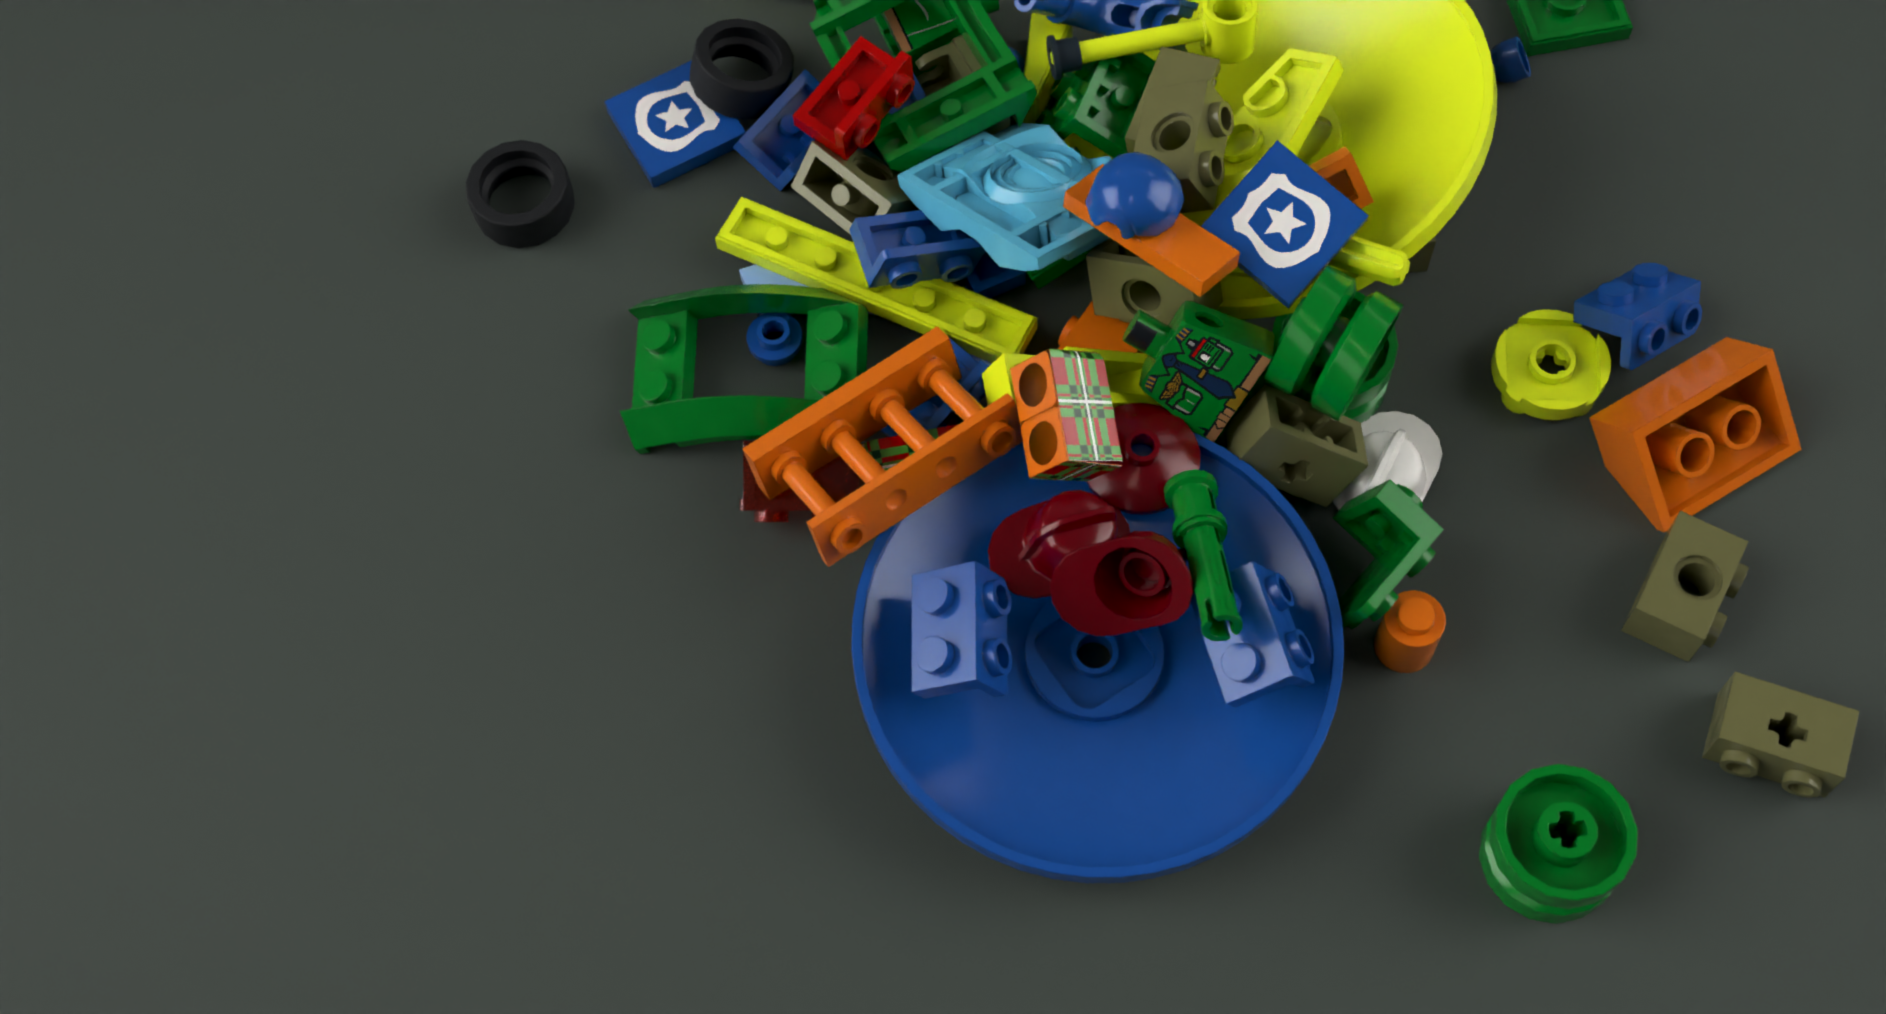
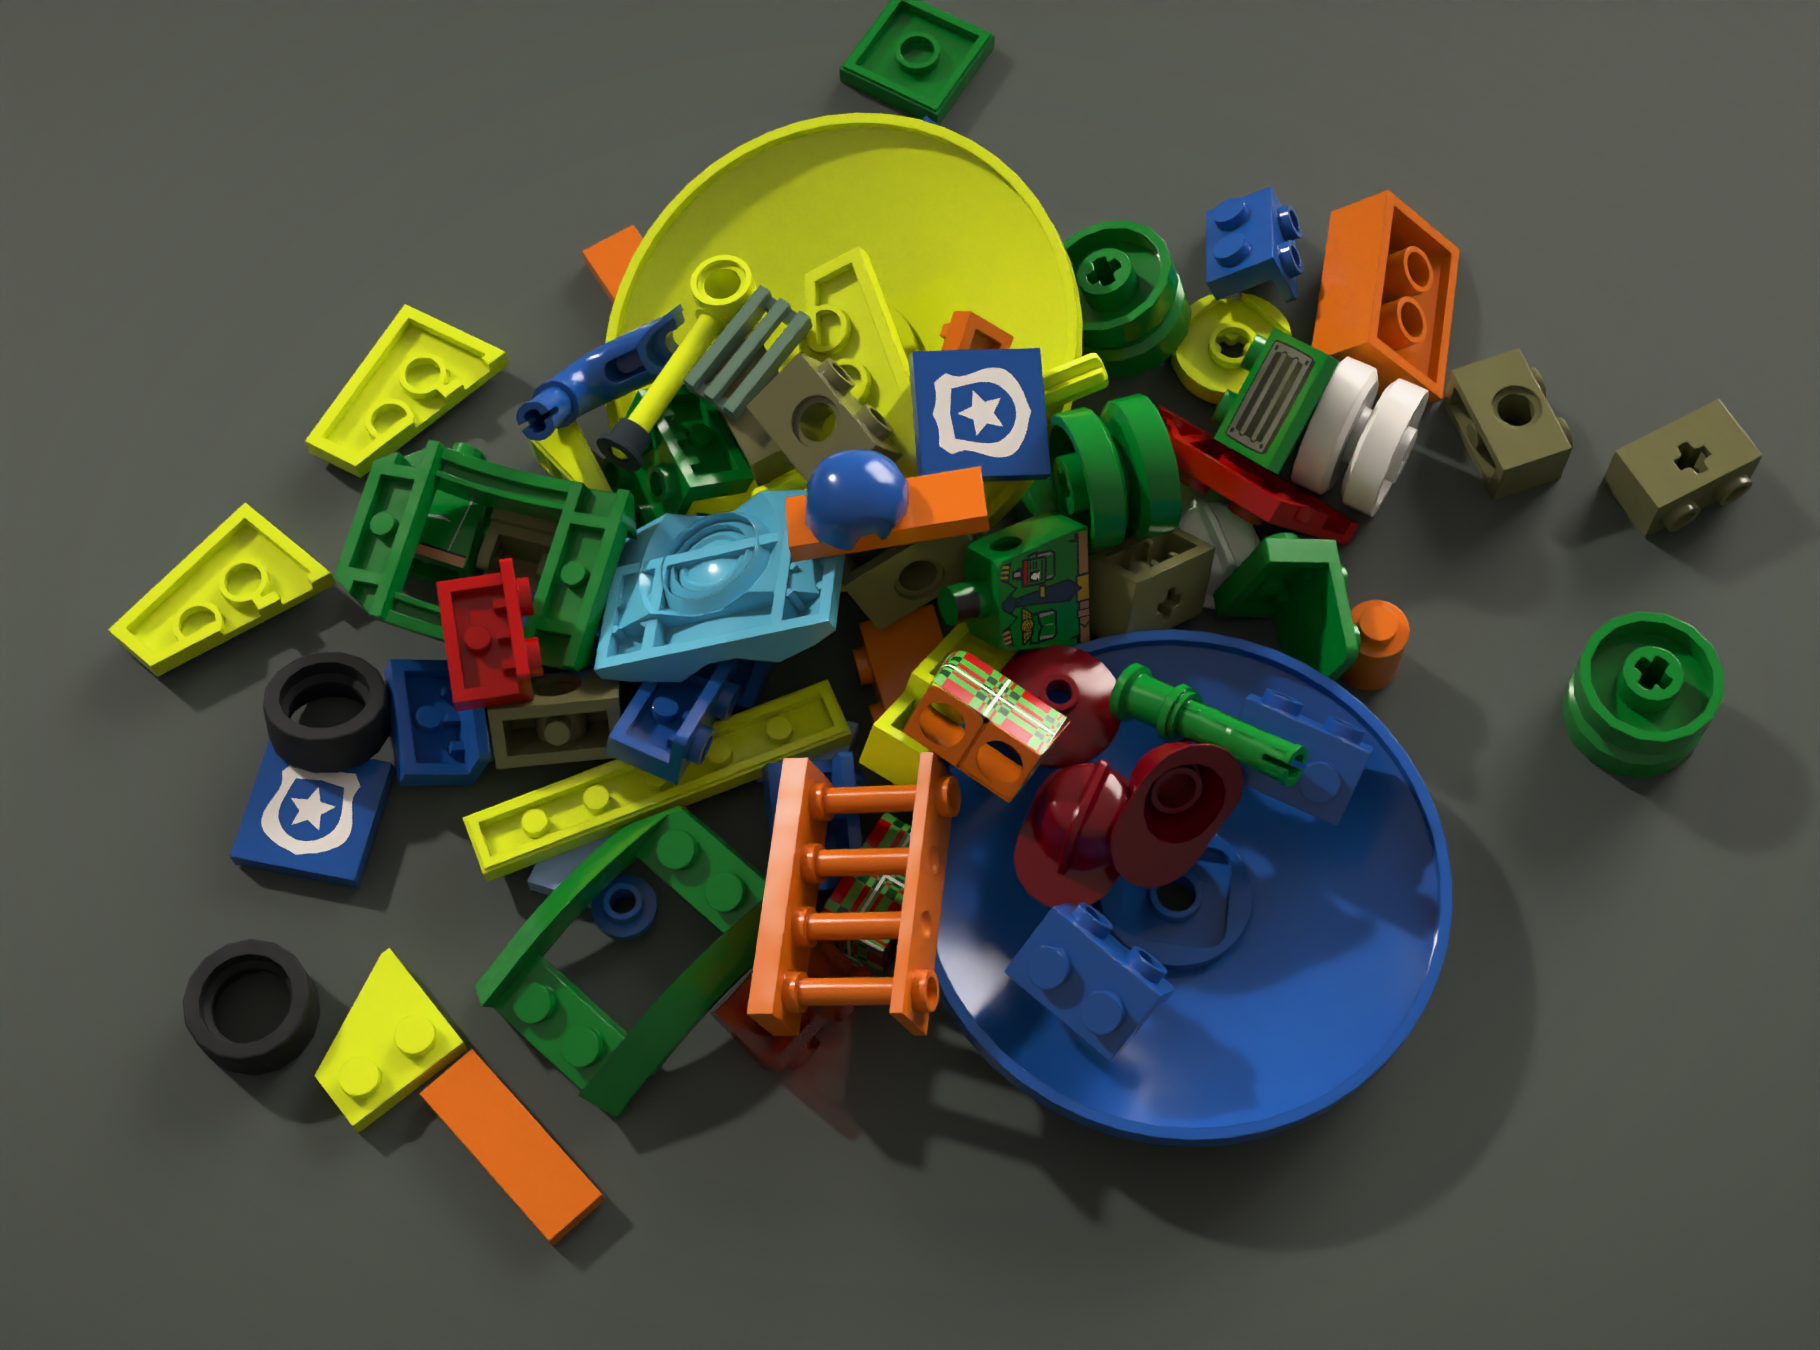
camera: 50 degrees left, 0 degrees up
(562, 409) = (512, 1147): none -> orange tile
(565, 286) = (386, 1045): none -> neon yellow wing
(1195, 58) = (726, 343): none -> sand green tile
(1447, 451) = (1253, 489): none -> red wing
(1500, 258) = (1128, 296): none -> green wheel
(1526, 417) = (1274, 400): none -> slope
(1558, 490) = (1353, 434): none -> white wheel

